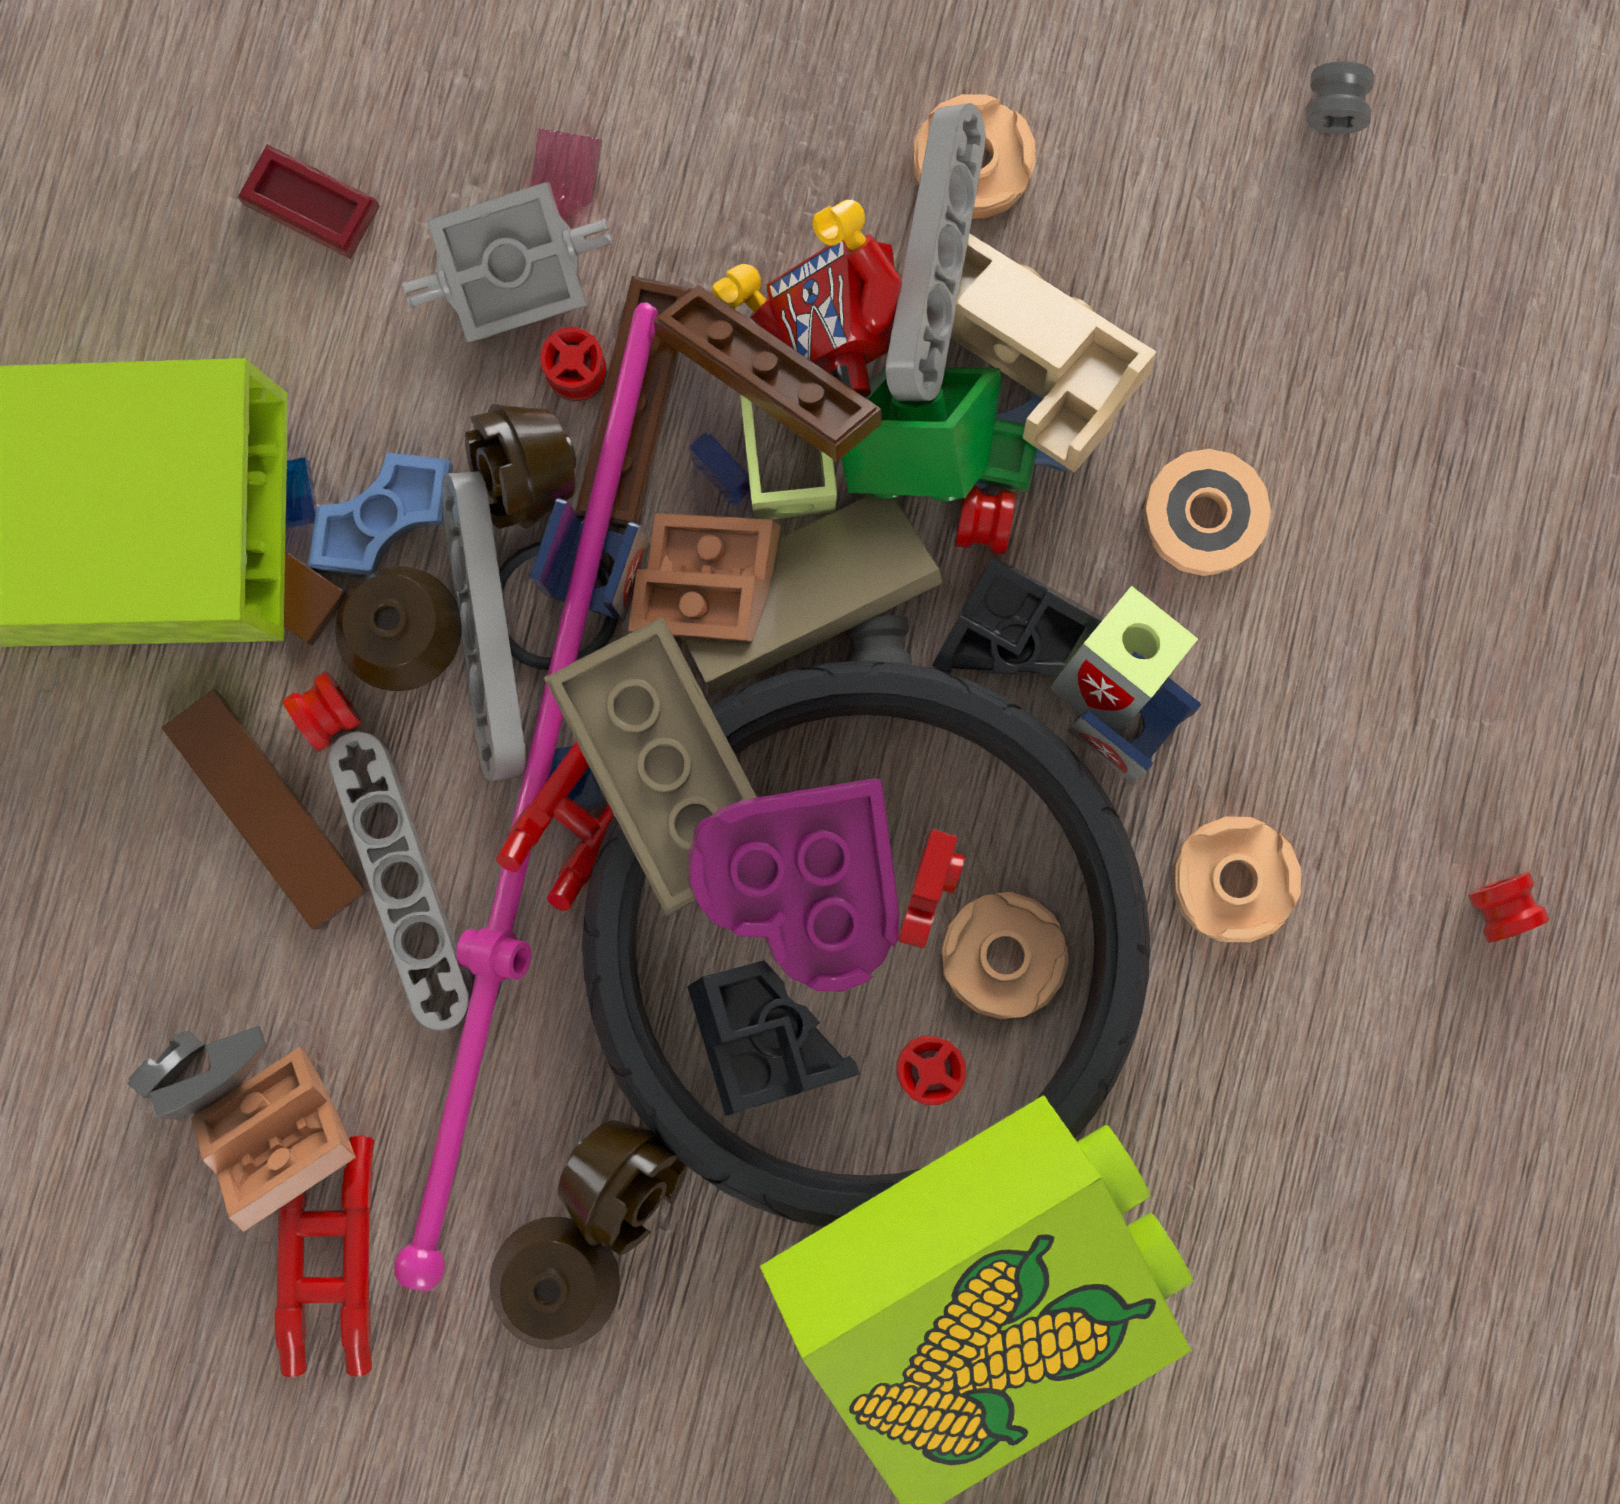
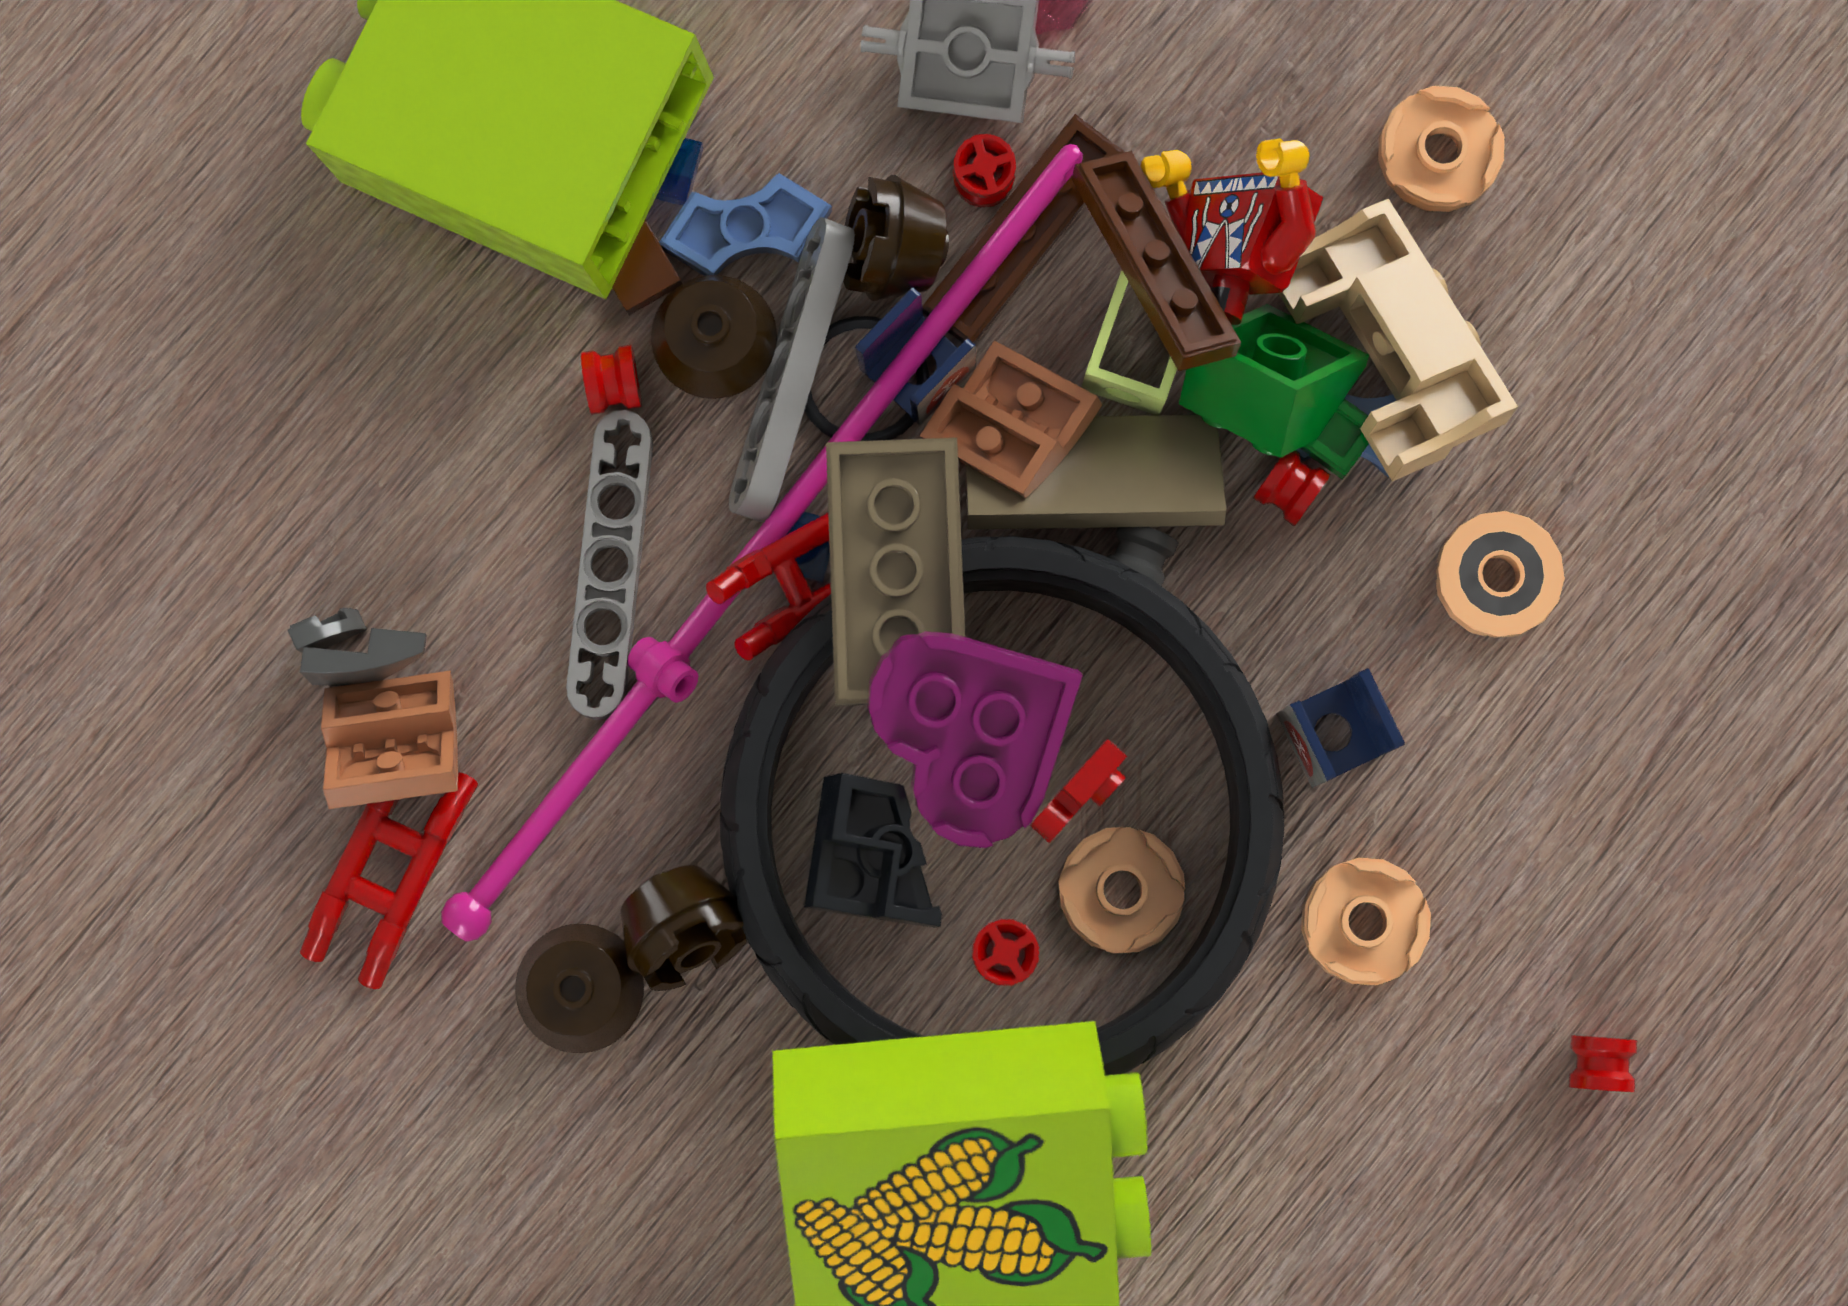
camera: 25 degrees right, 0 degrees up
(264, 809) = (518, 443): reddish brown tile -> none
(720, 468) = (1072, 327): clear blue tile -> none
(936, 253) = (1359, 223): light grey beam -> none
(1015, 626) = (1275, 597): black slope -> none
(1107, 676) = (1331, 675): piece -> none
(1340, 97) = (1806, 251): dark grey wheel -> none

